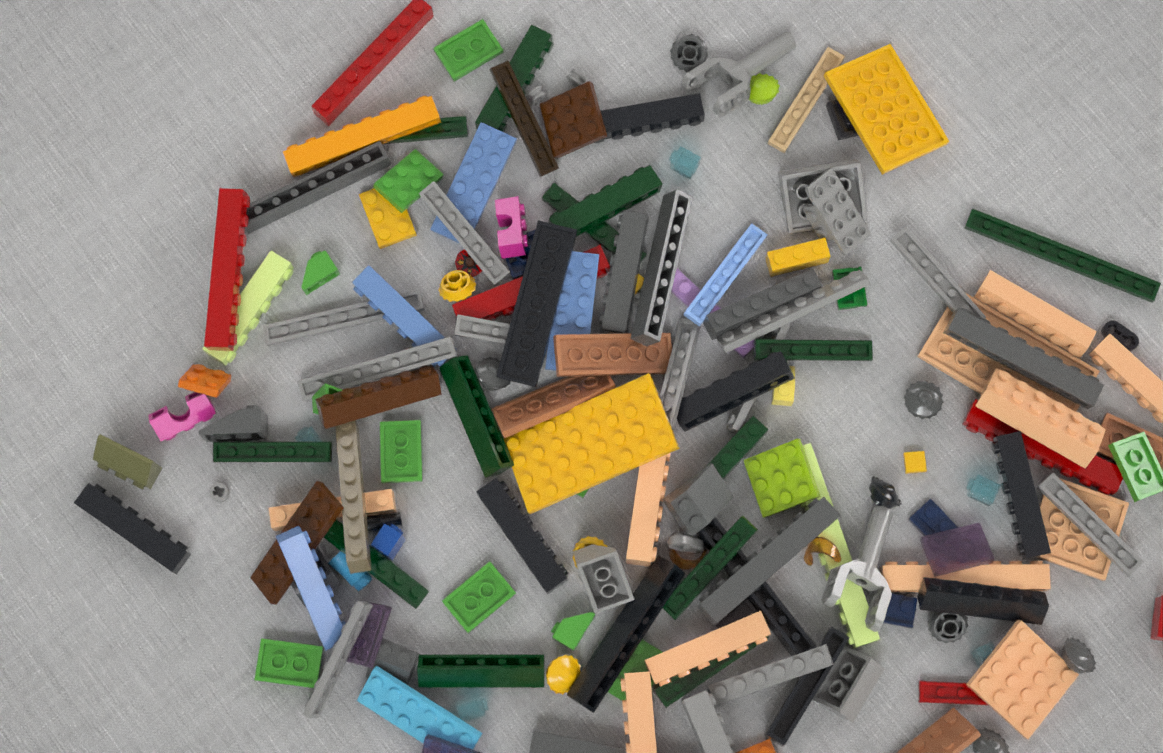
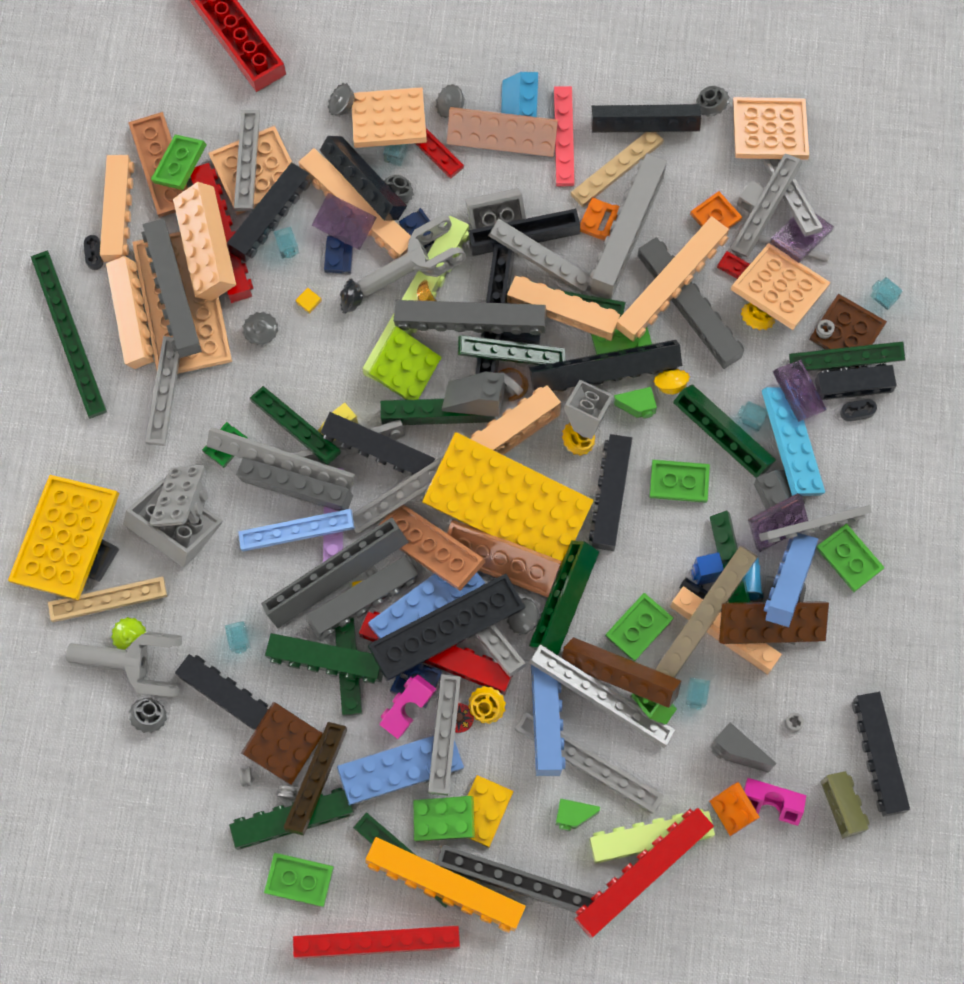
camera: 135 degrees left, 5 degrees down
(272, 451) = (729, 707): dark green tile -> none
(797, 257) = (236, 496): yellow brick -> none

